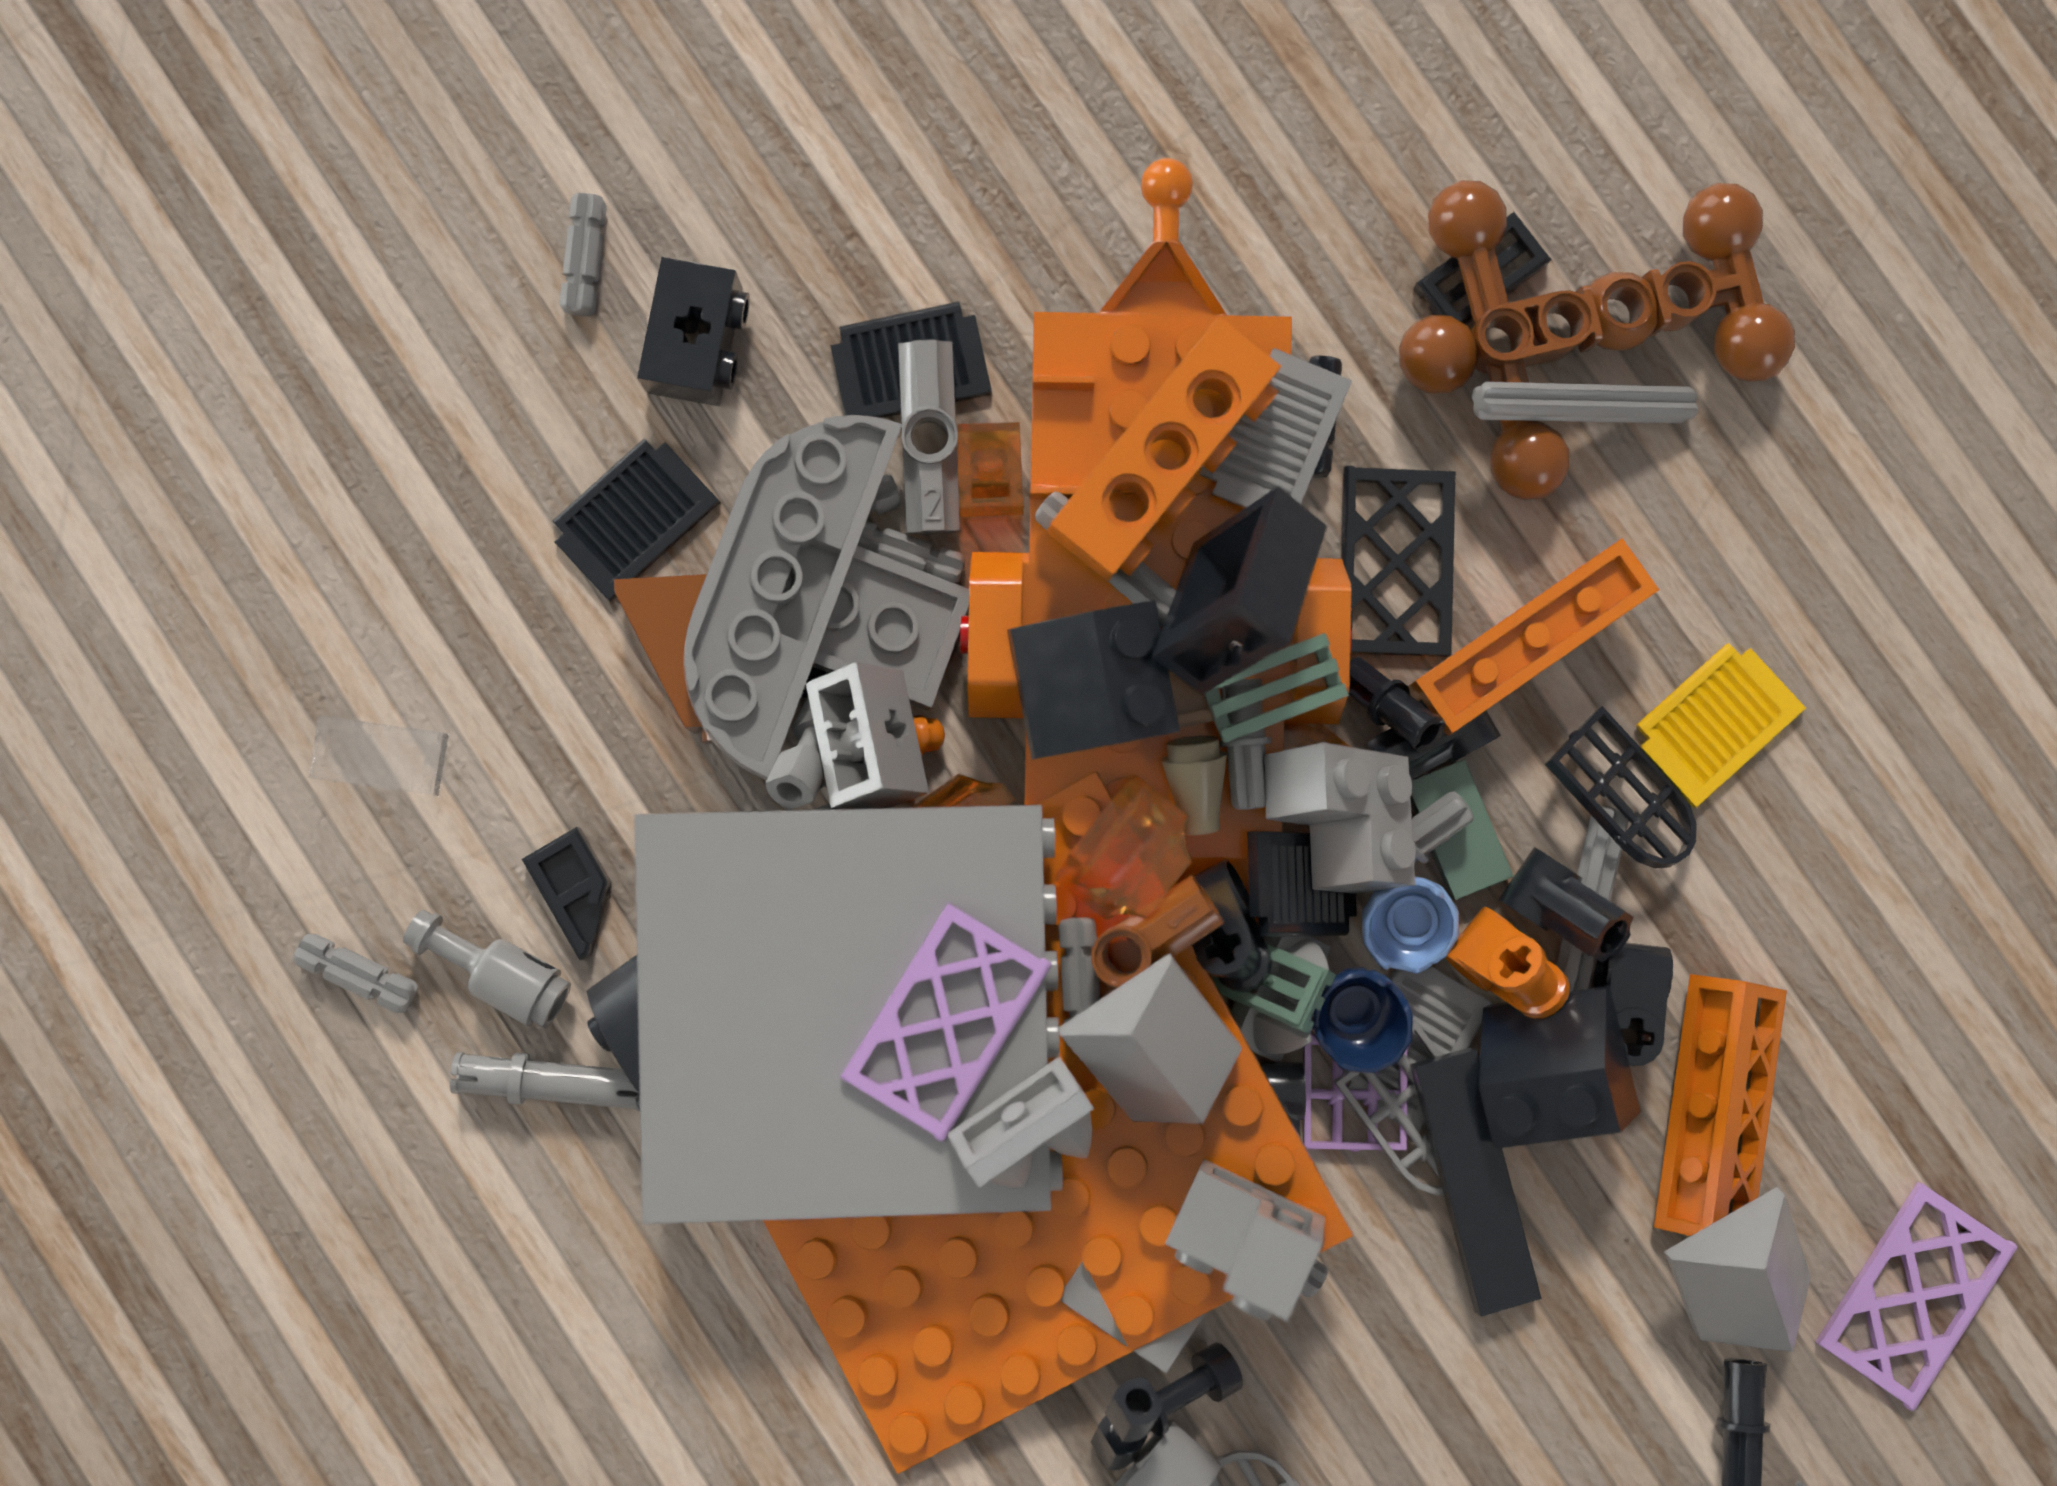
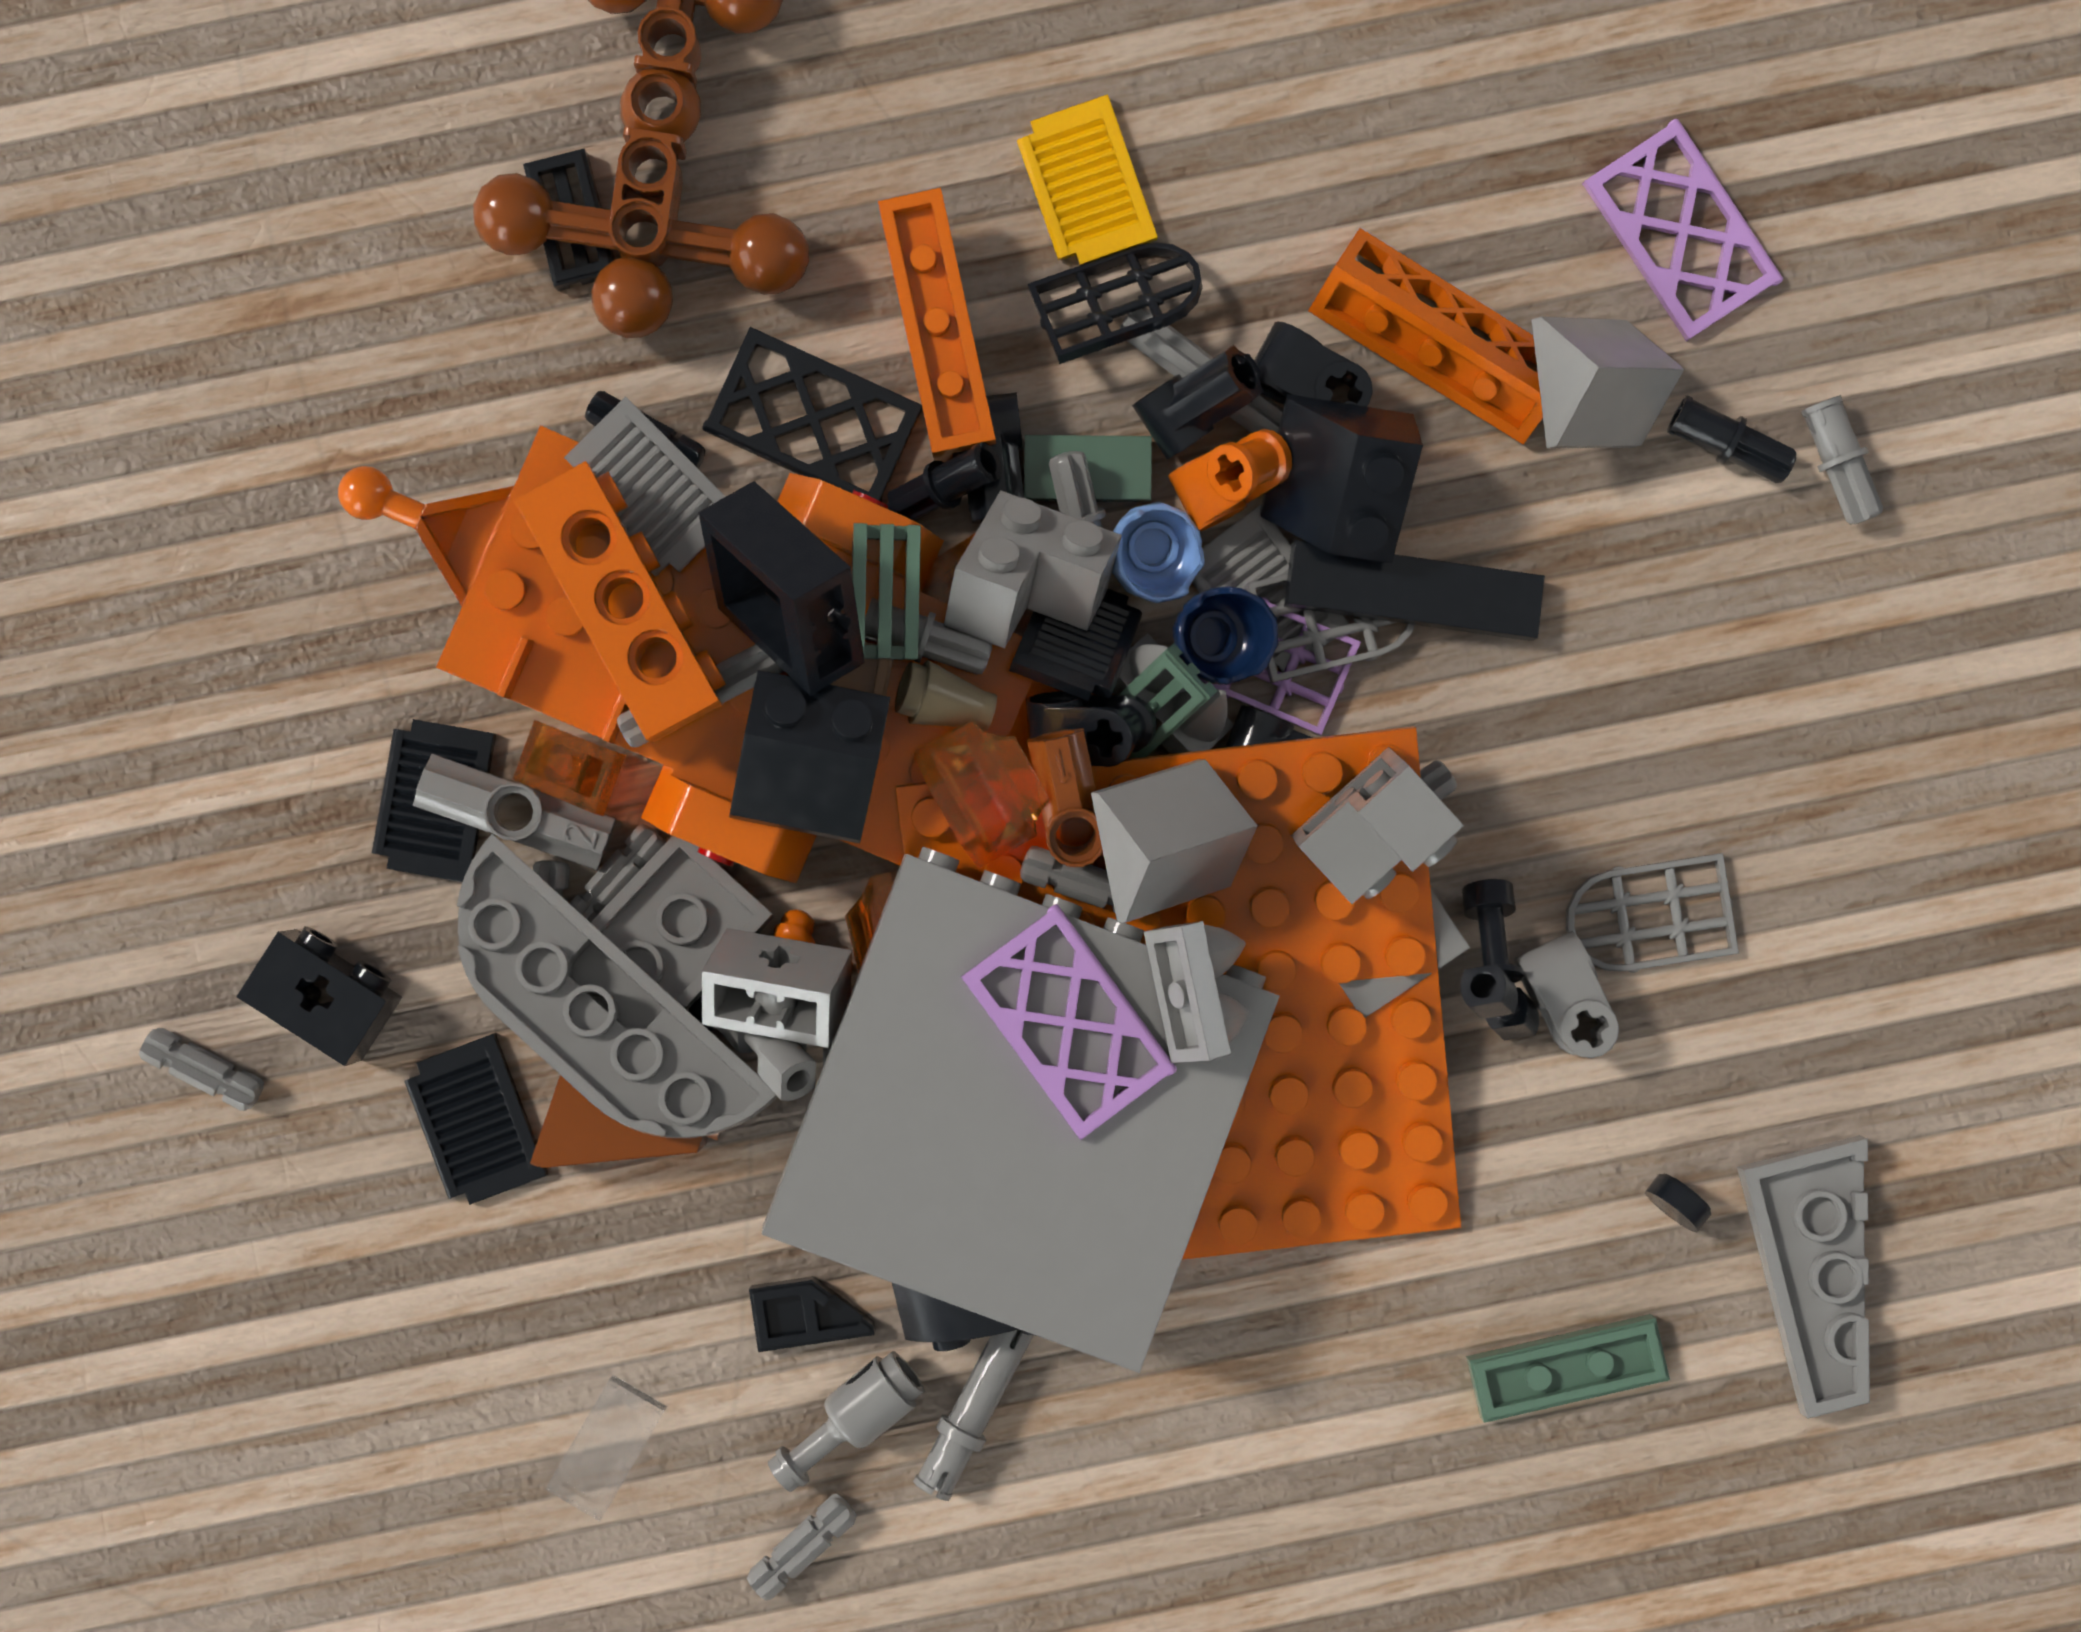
camera: 65 degrees left, 5 degrees up
(1584, 402) = (734, 179): light grey axle -> none

